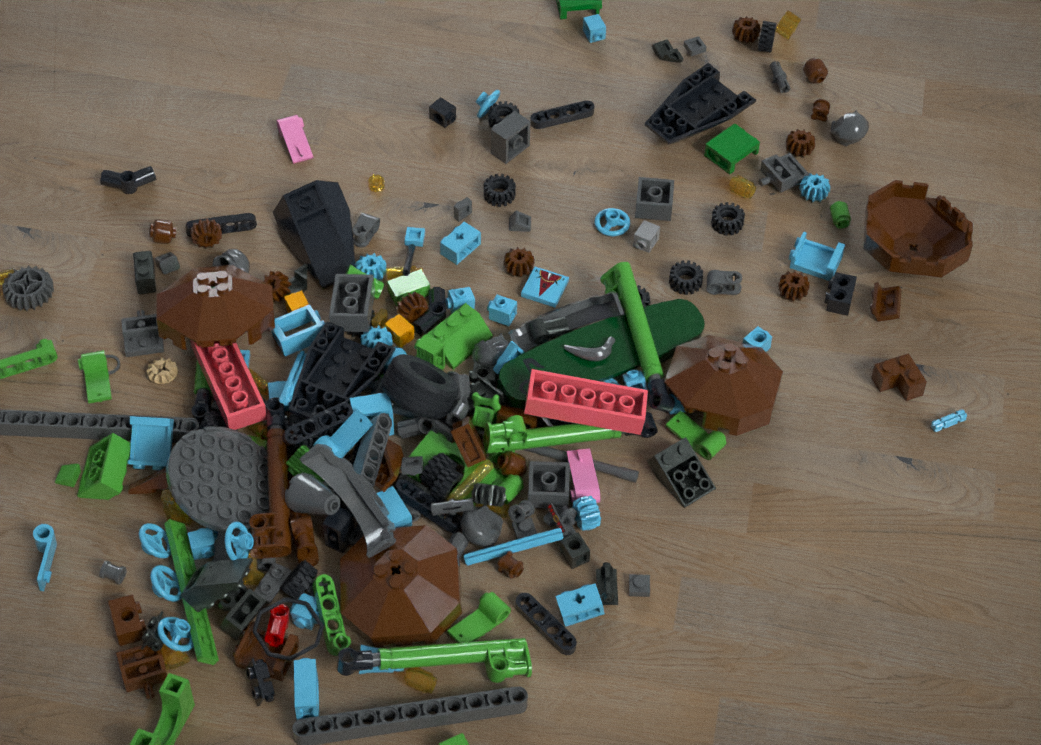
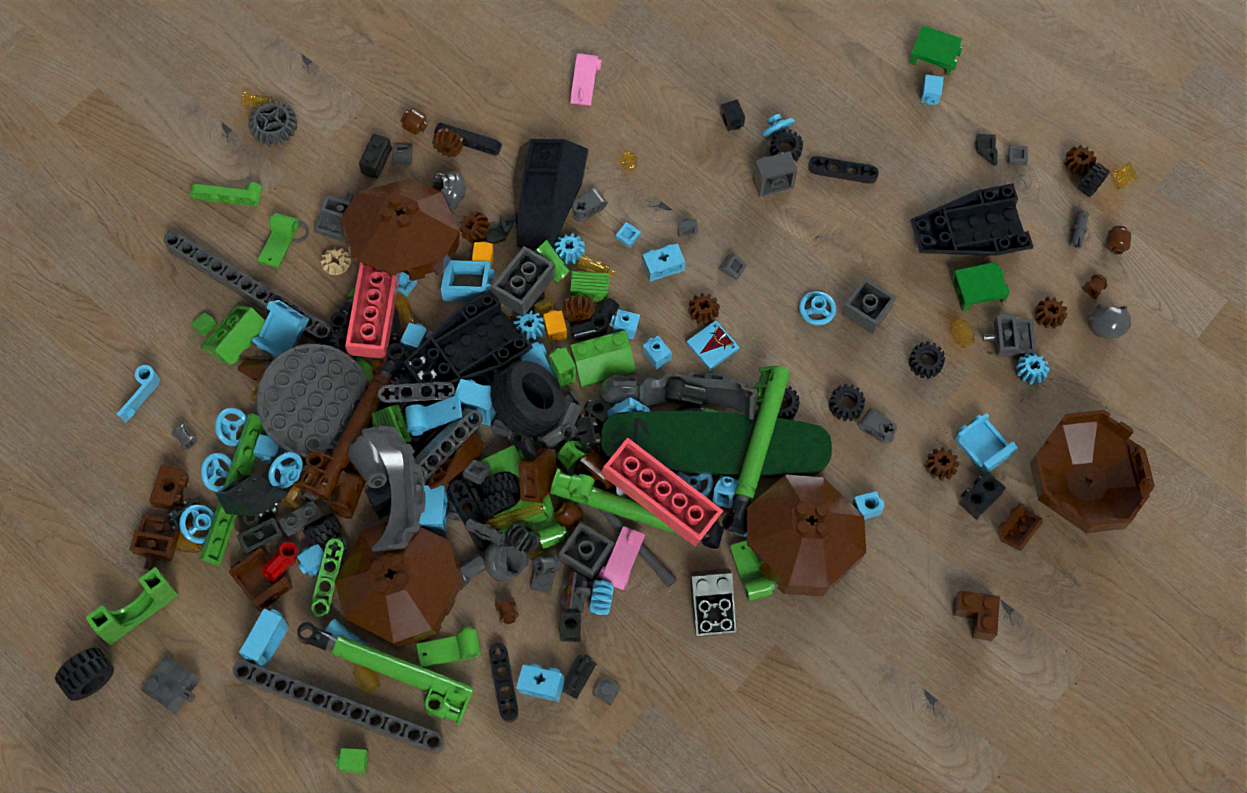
camera: 30 degrees right, 15 degrees up
(128, 180) = (422, 55): black piece -> none
(256, 672) = (235, 613): black hinge -> none
(292, 380) = (417, 341): medium azure axle -> none
(300, 652) = (284, 544): black piece -> none
(408, 261) = (605, 258): black piece -> none
(493, 402) = (583, 446): bright green piece -> none
(499, 182) = (730, 232): black tyre -> none
(514, 546) = (519, 595): medium azure axle -> none
(592, 354) = (701, 445): dark grey piece -> none
(646, 236) = (837, 341): light grey brick -> none
(840, 214) = (1038, 410): bright green brick -> none
(948, 420) = (997, 681): medium azure axle -> none

